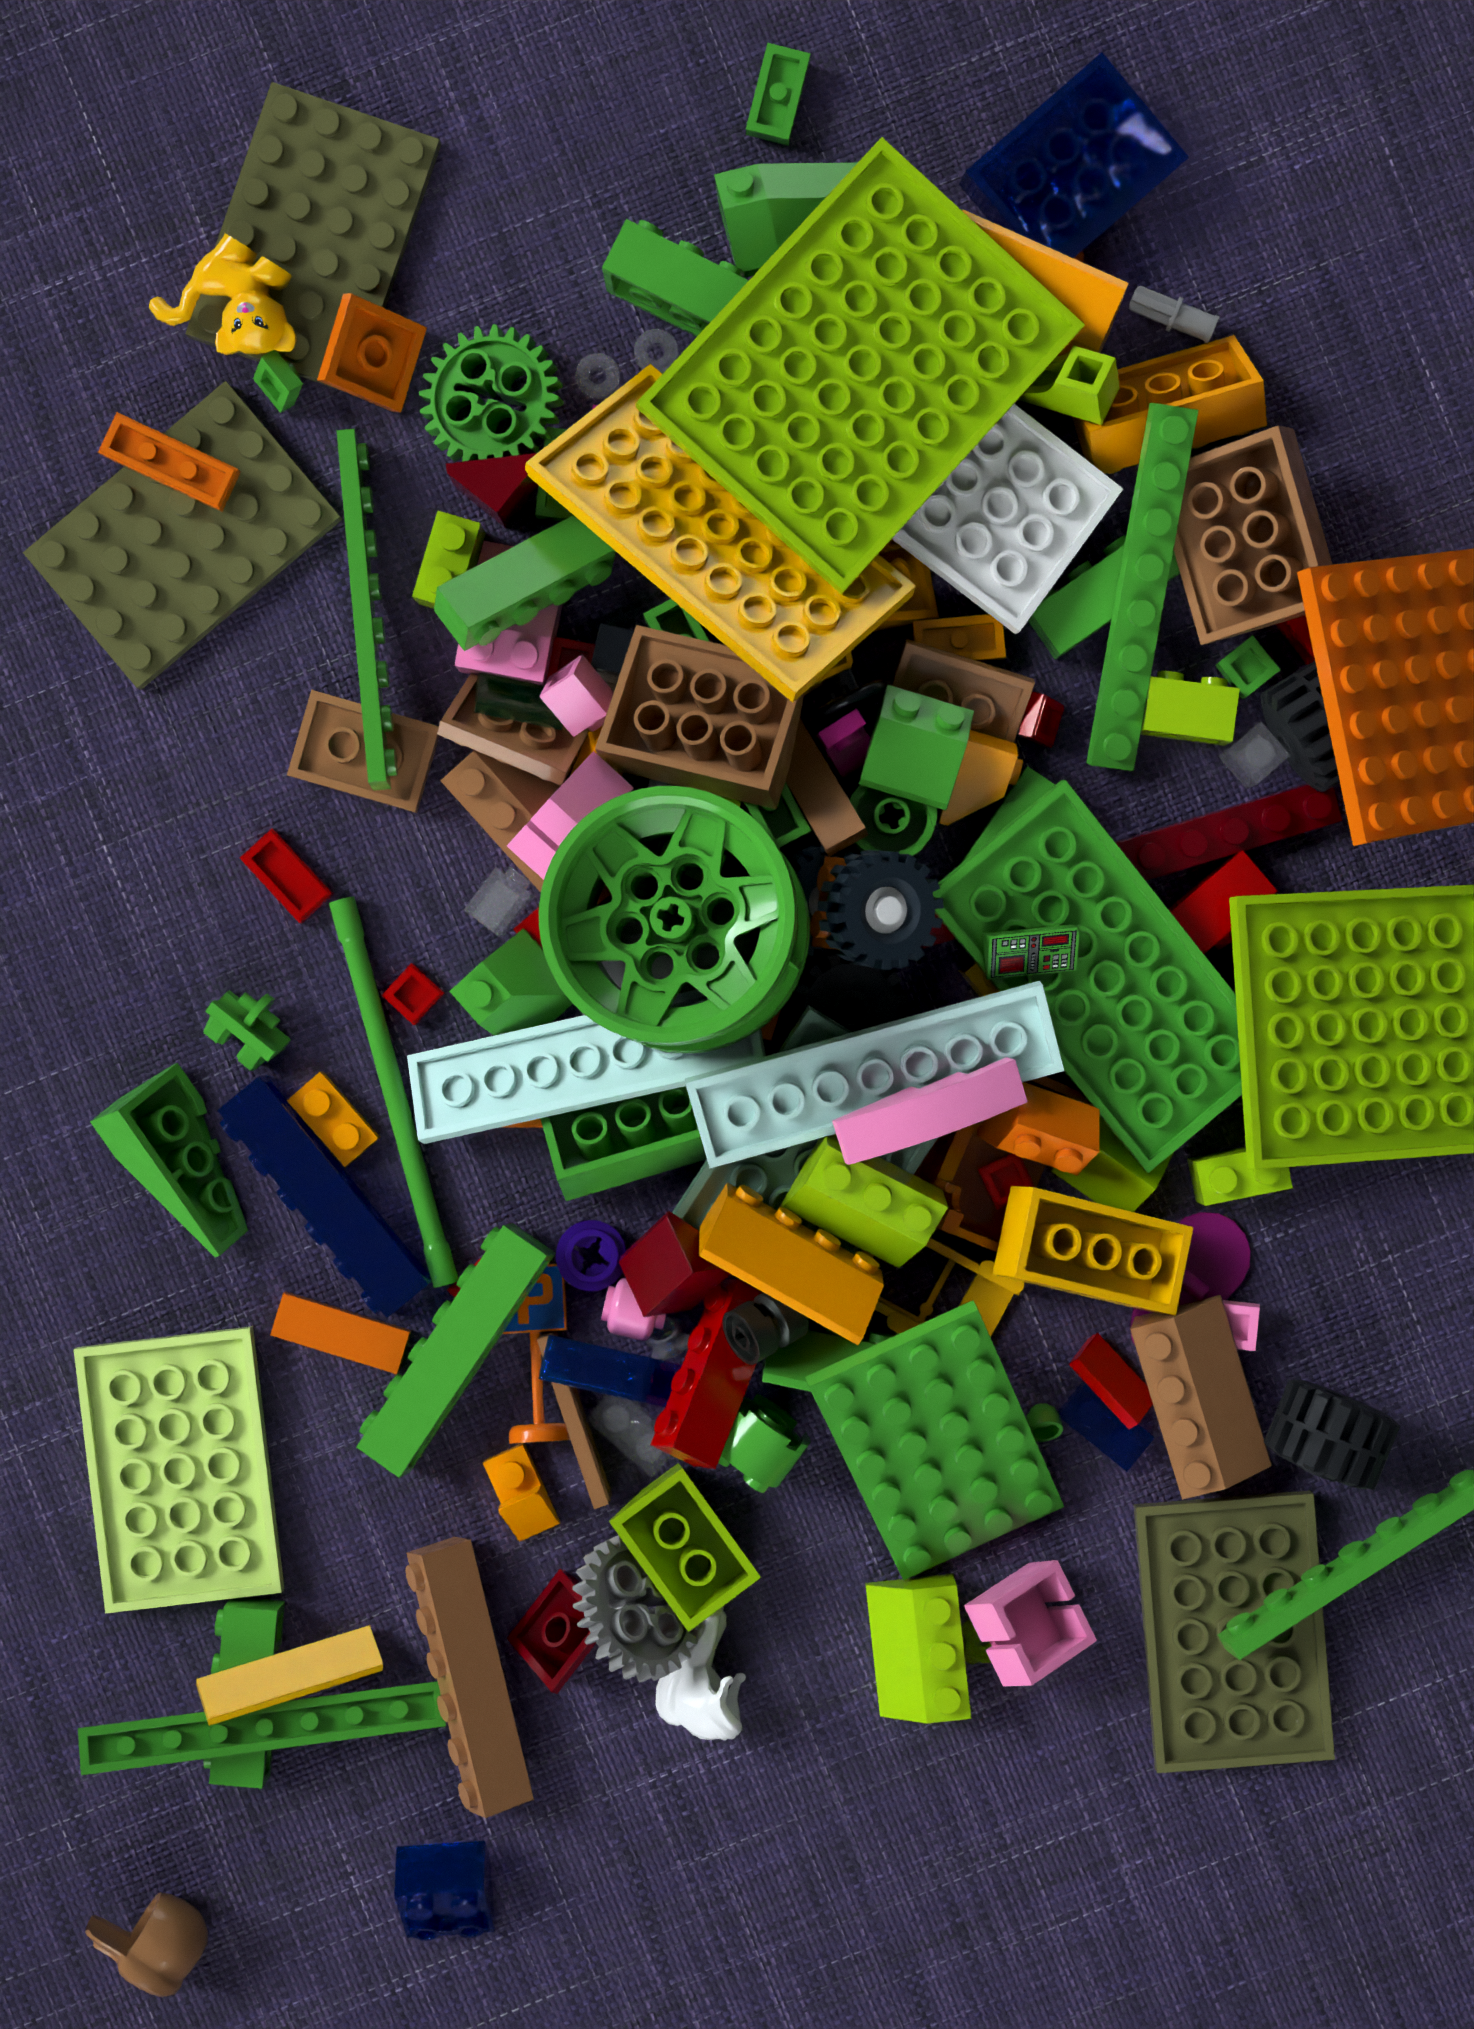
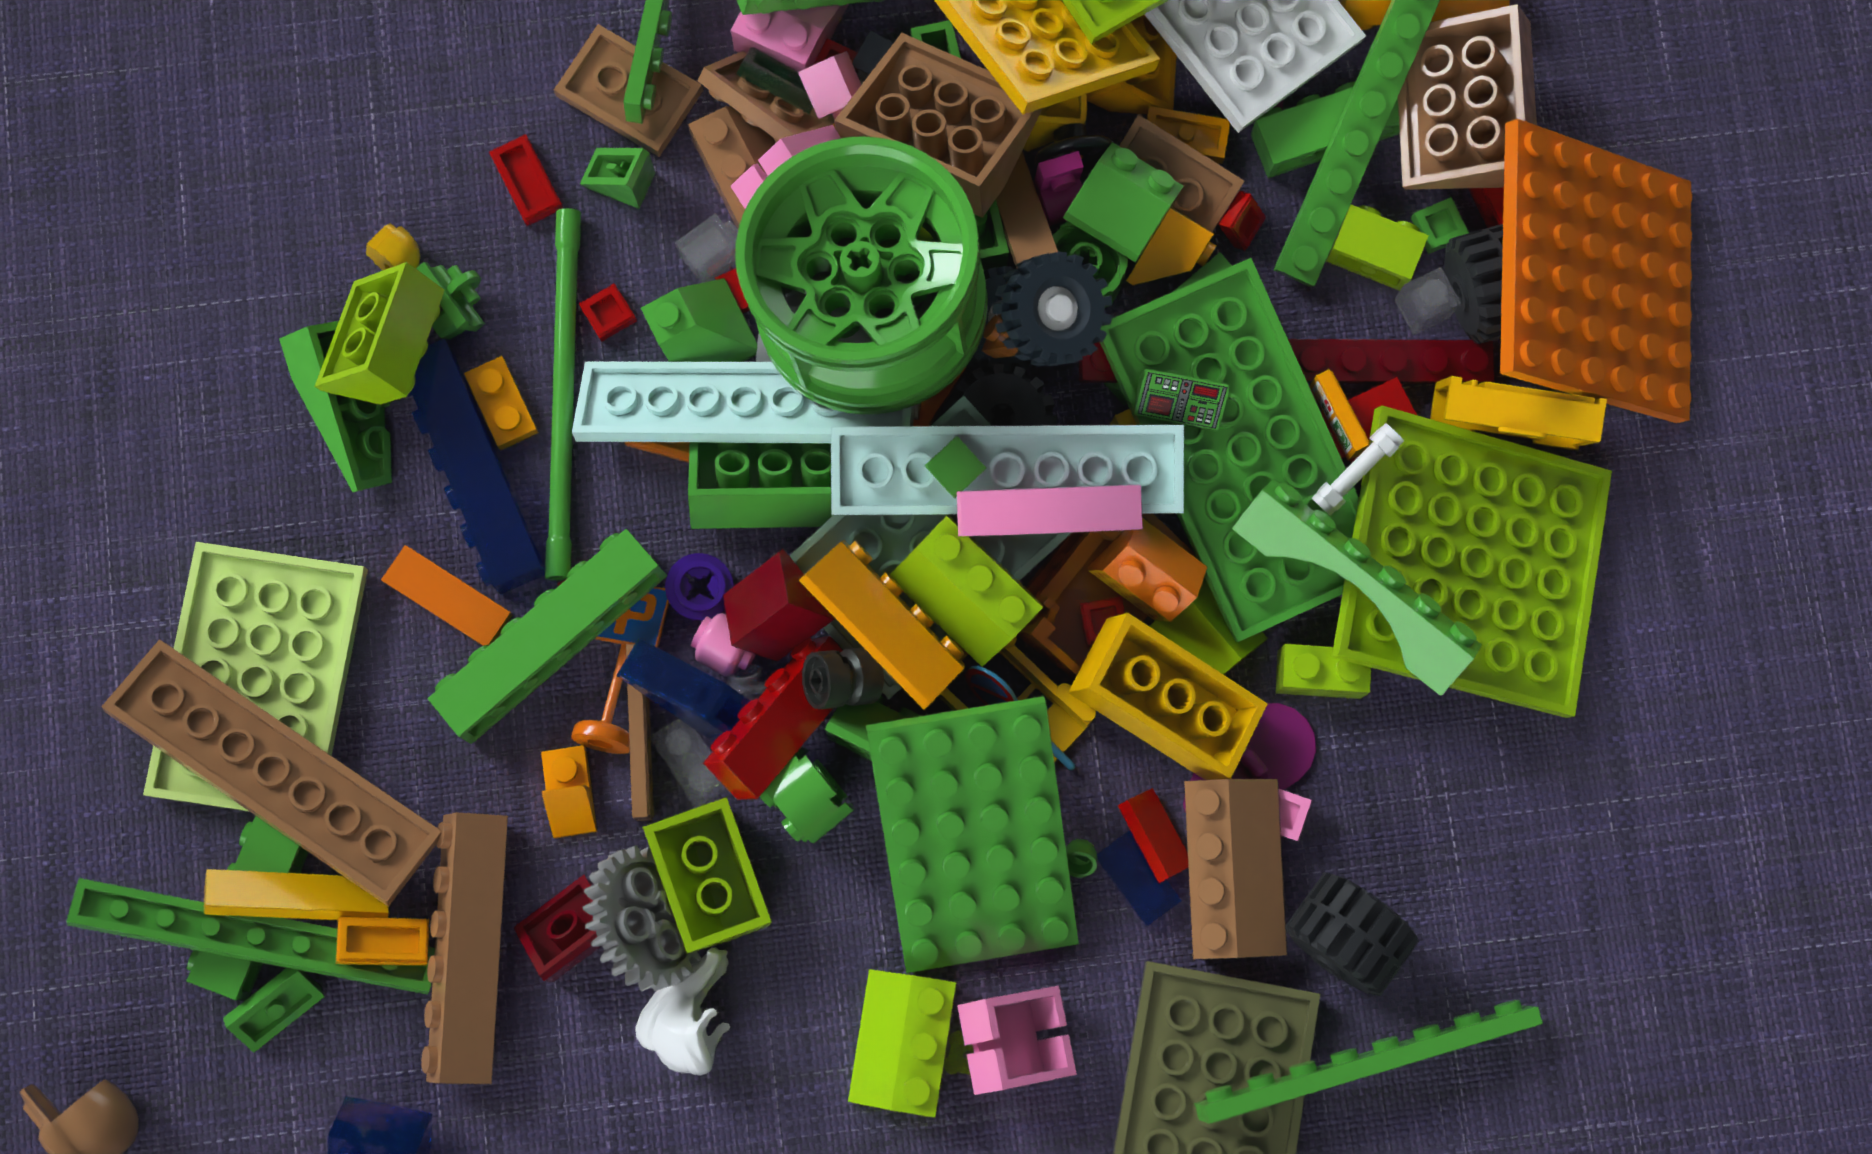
camera: 15 degrees right, 10 degrees down
(178, 993) = (393, 247): none -> yellow piece
(195, 1097) = (381, 336): none -> lime slope
(227, 1562) = (273, 772): none -> medium nougat plate
(299, 1782) = (273, 1007): none -> bright green plate
(380, 845) = (620, 174): none -> bright green slope
(386, 1694) = (382, 941): none -> light orange tile
(822, 1092) = (955, 466): none -> bright green slope
(926, 1289) = (993, 690): none -> piece
(1174, 1057) = (1429, 641): none -> bright green arch
(1195, 912) = (1339, 414): none -> light orange tile
(1249, 938) = (1383, 442): none -> white bar
(1374, 867) = (1517, 411): none -> yellow piece

